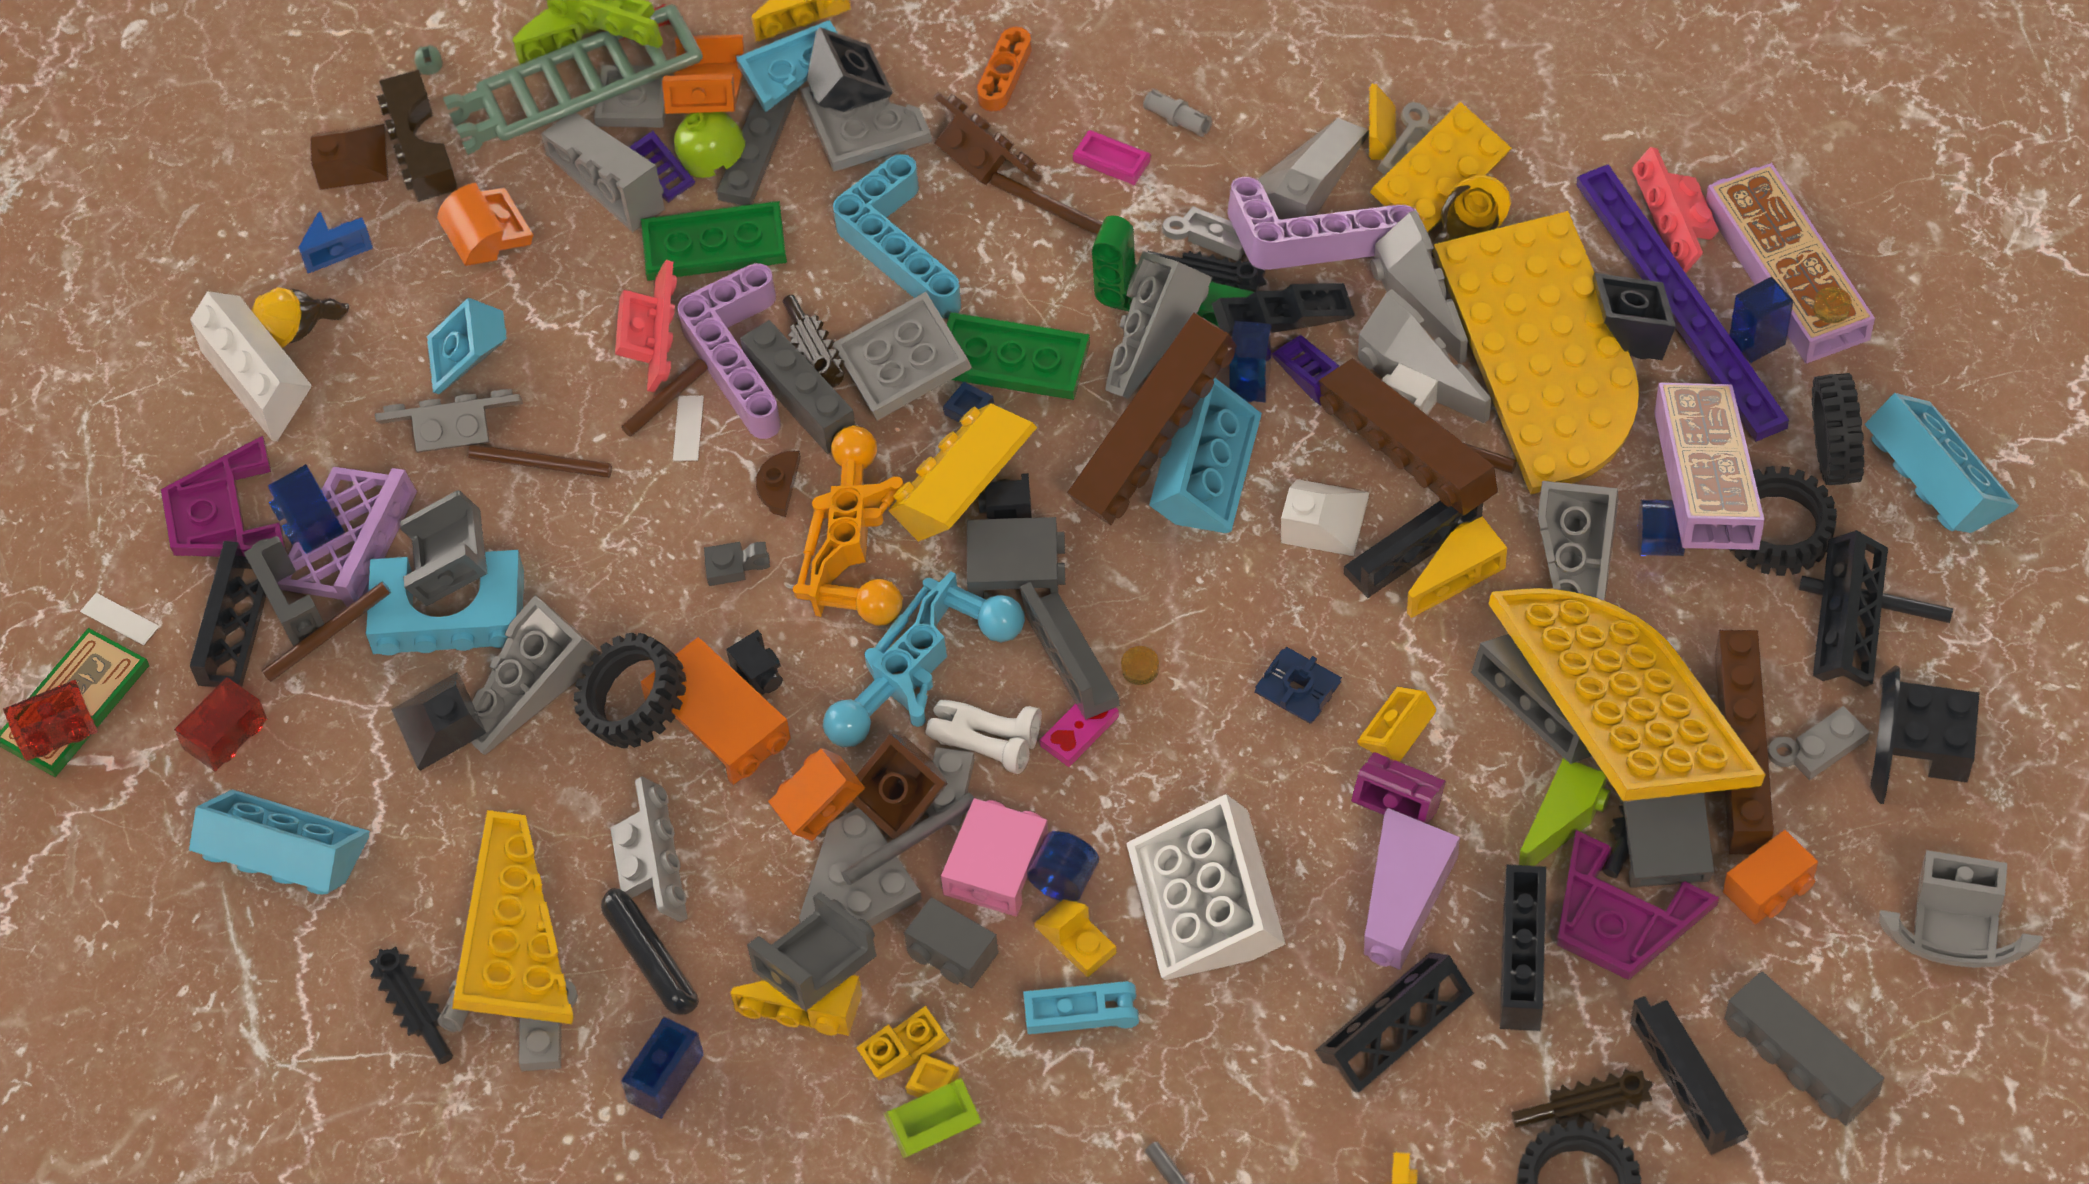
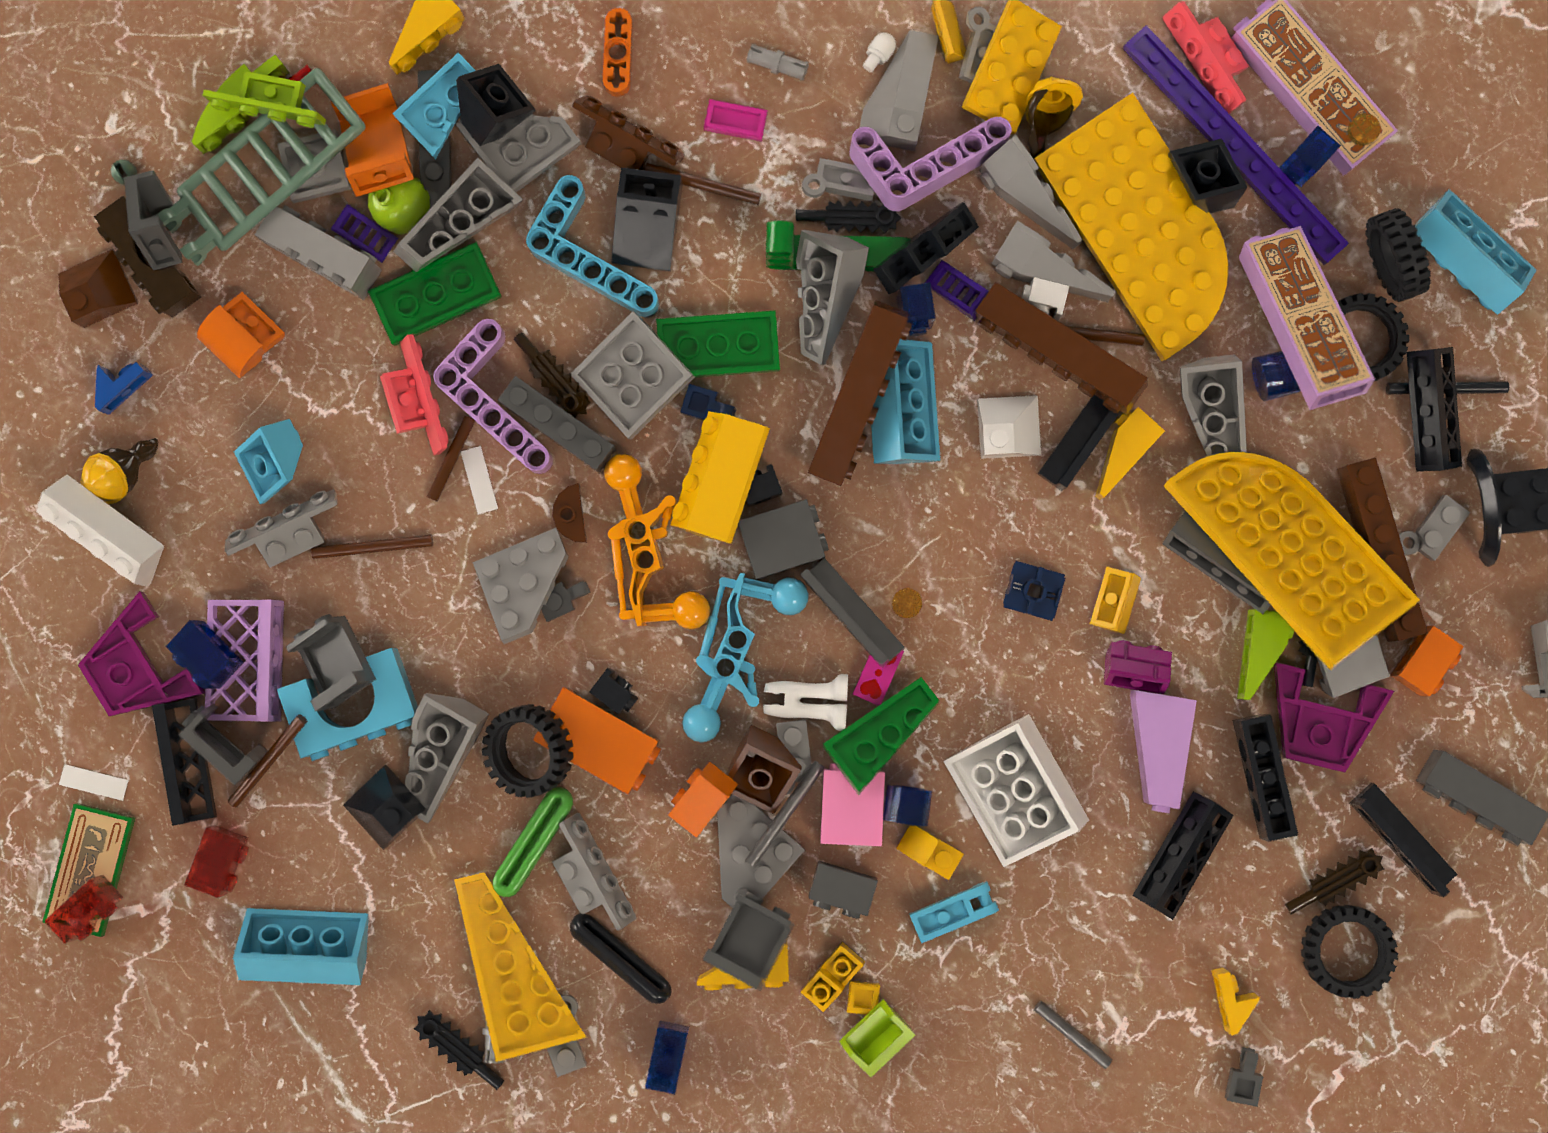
camera: 20 degrees left, 30 degrees up
(434, 81) = (144, 201): none -> dark grey panel
(595, 799) = (532, 842): none -> bright green piece
(692, 525) = (521, 582): none -> light grey plate
(767, 161) = (463, 211): none -> light grey wedge
(977, 215) = (646, 219): none -> black slope
(1052, 781) = (874, 739): none -> green wing
(1296, 127) = (879, 51): none -> white cylinder

